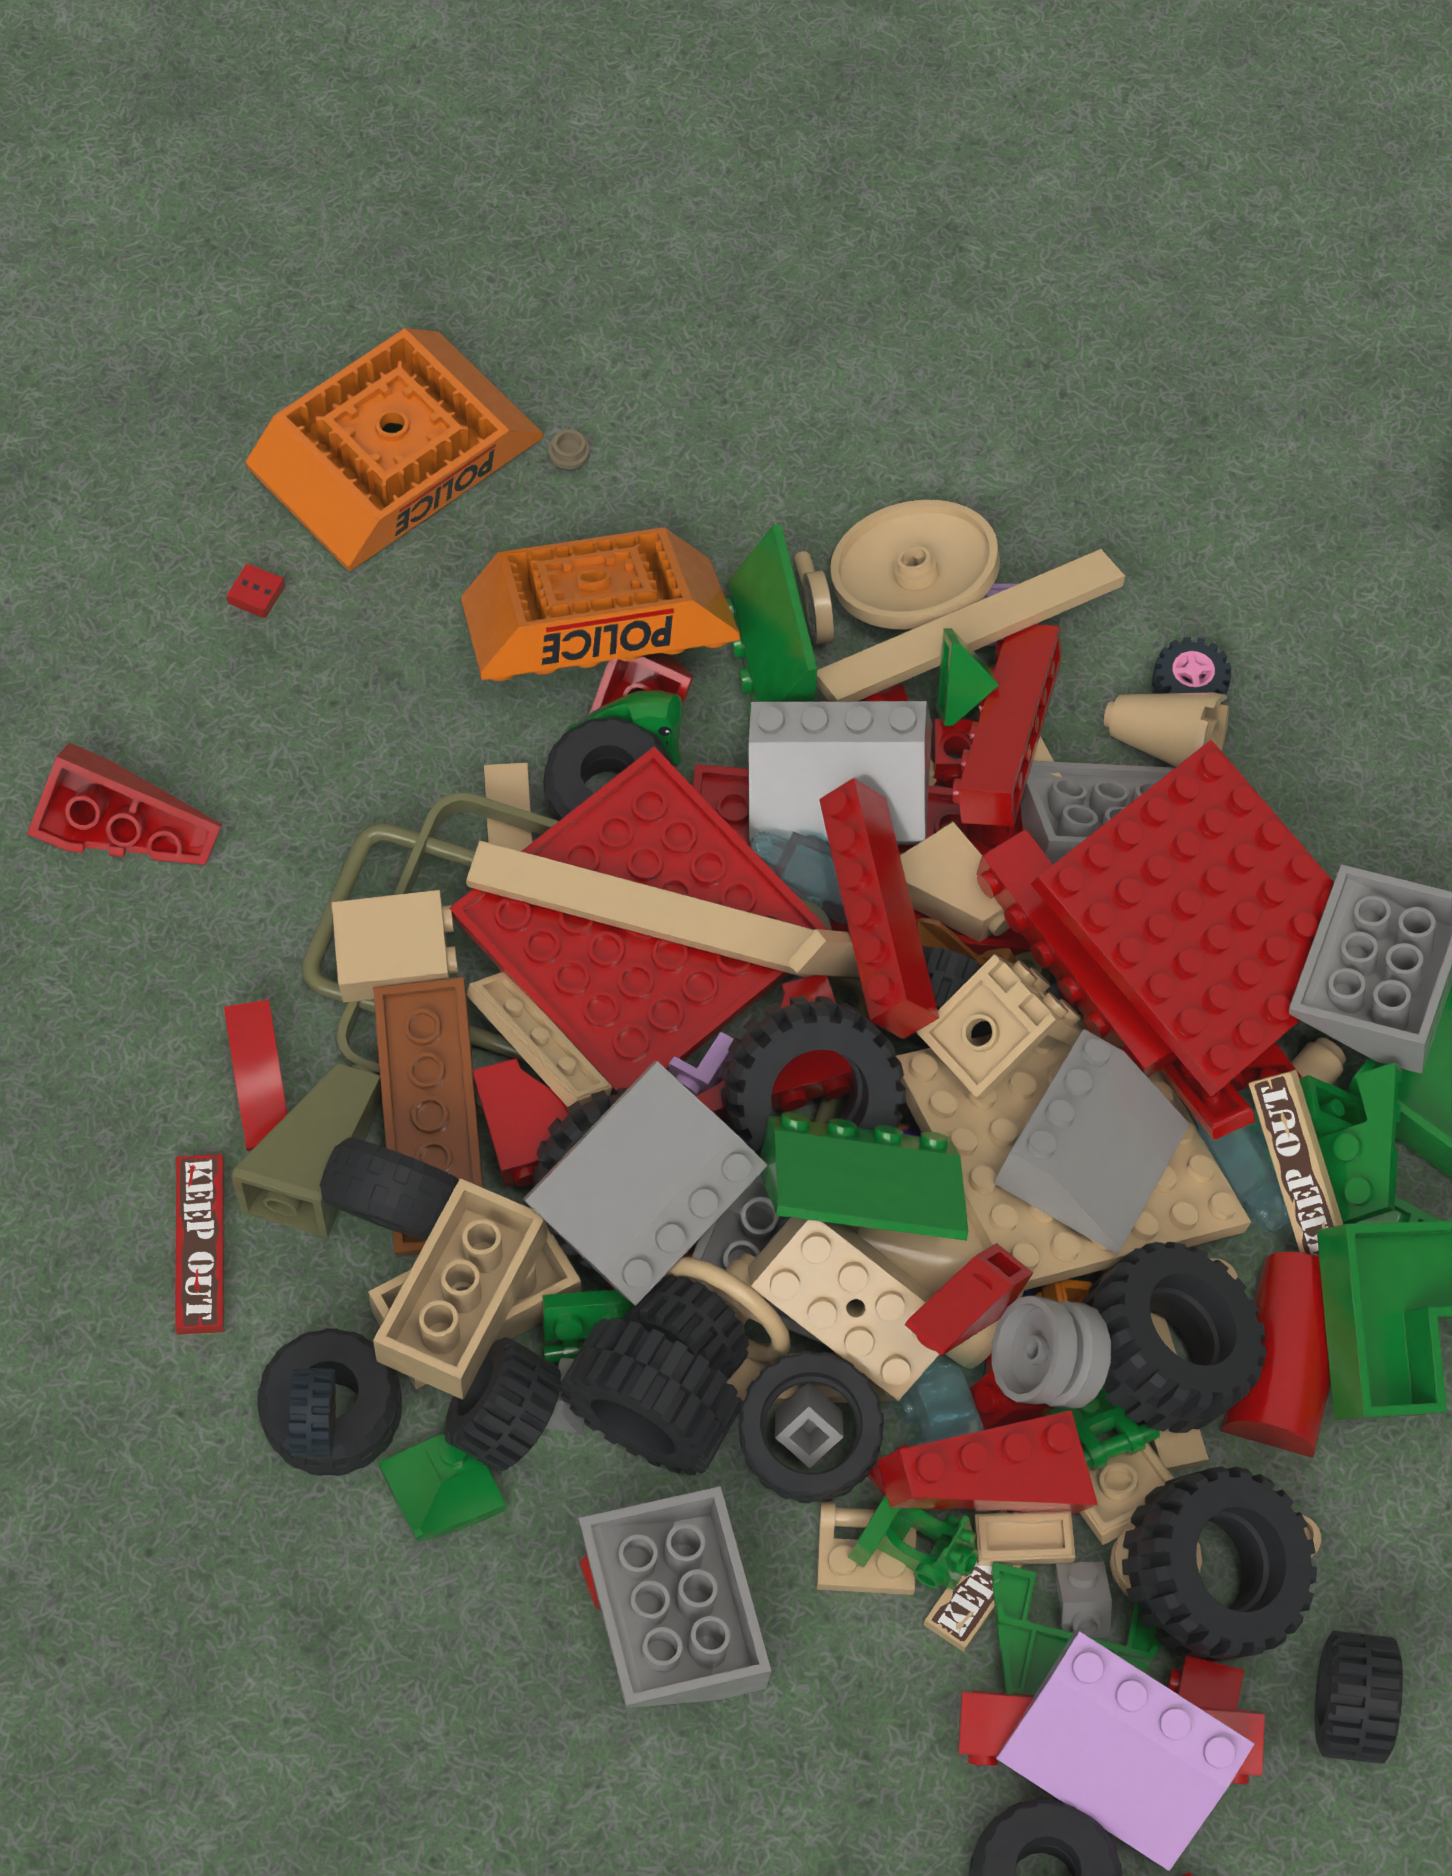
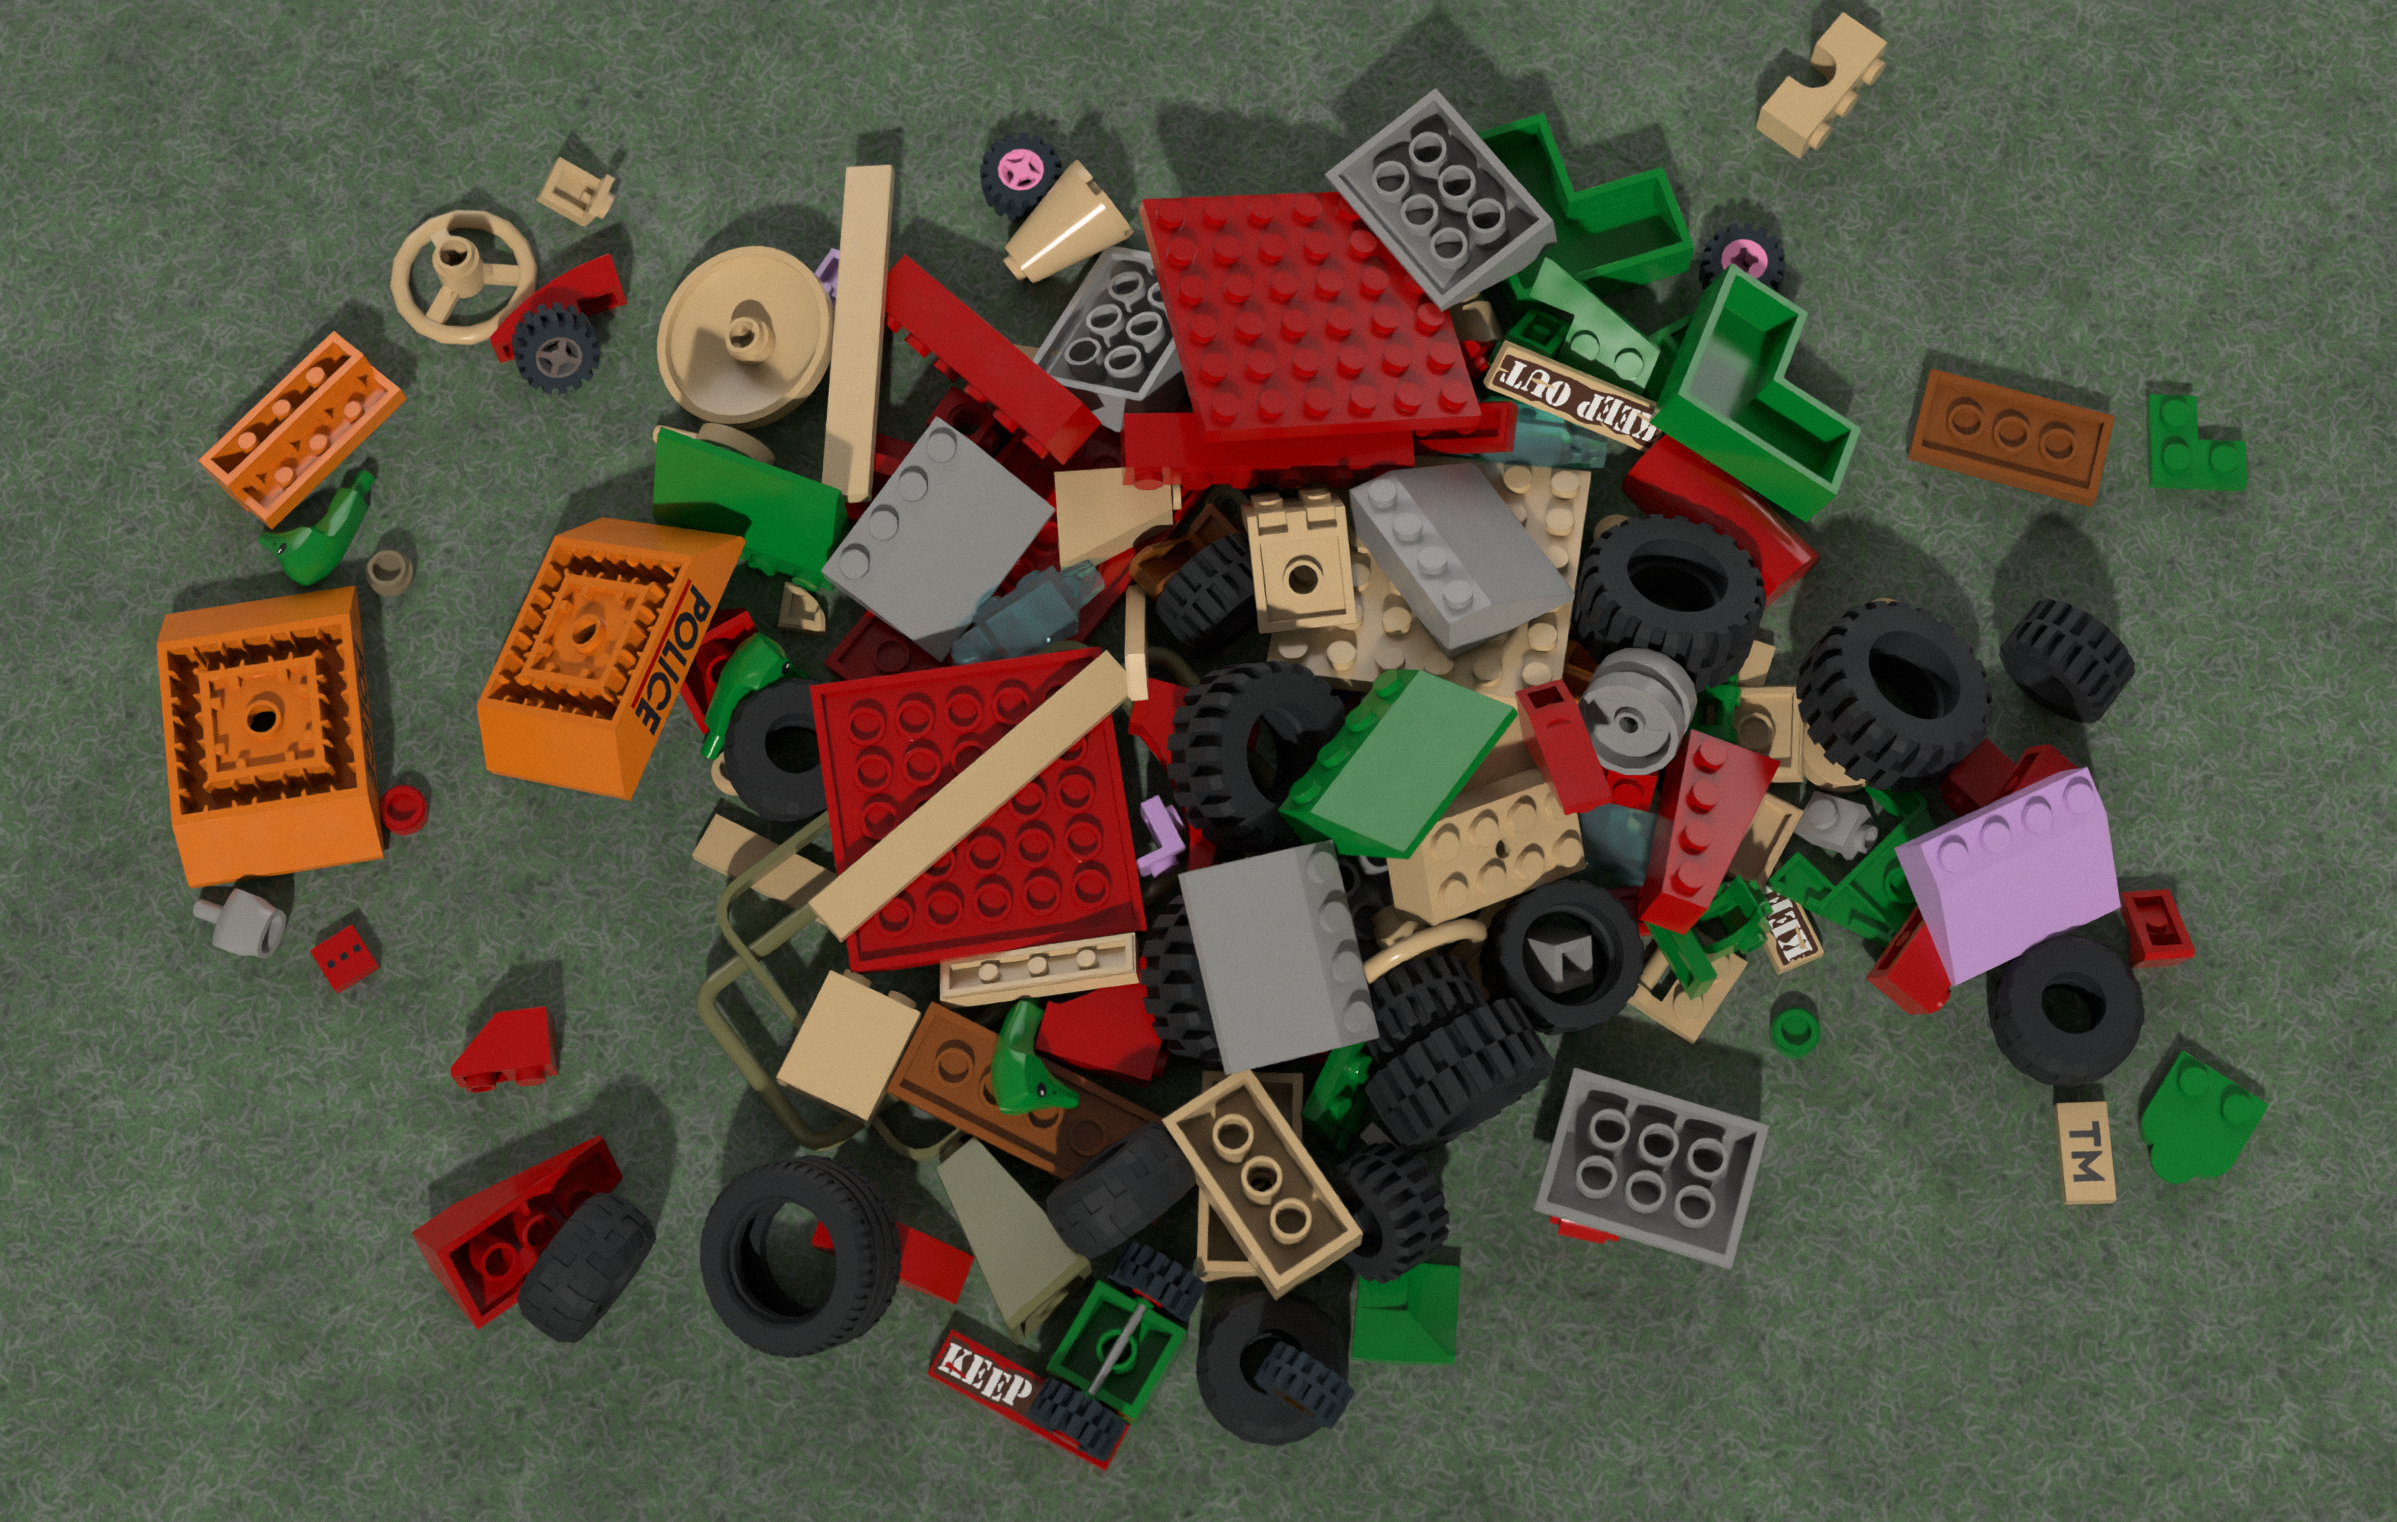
camera: 55 degrees left, 10 degrees up
(108, 865) = (586, 1267): none -> black tyre
(235, 1026) = (737, 1264): none -> black tyre
(239, 513) = (244, 924): none -> light grey piece
(253, 729) = (509, 1048): none -> red slope
(268, 1275) = (1117, 1351): none -> brick
(394, 563) = (403, 810): none -> red tile
(438, 1069) = (1017, 1075): none -> green animal
(549, 394) = (314, 552): none -> green animal
(636, 330) = (302, 430): none -> orange brick
(728, 731) = (801, 612): none -> tan tile
(798, 445) = (564, 363): none -> black wheel
(831, 363) = (461, 274): none -> tan piece
(850, 436) = (588, 287): none -> red slope
(878, 909) = (1118, 589): red brick -> none
(880, 1665) = (1795, 1032): none -> green tile
(949, 394) = (576, 193): none -> tan bracket
(962, 679) = (913, 375): green slope -> none

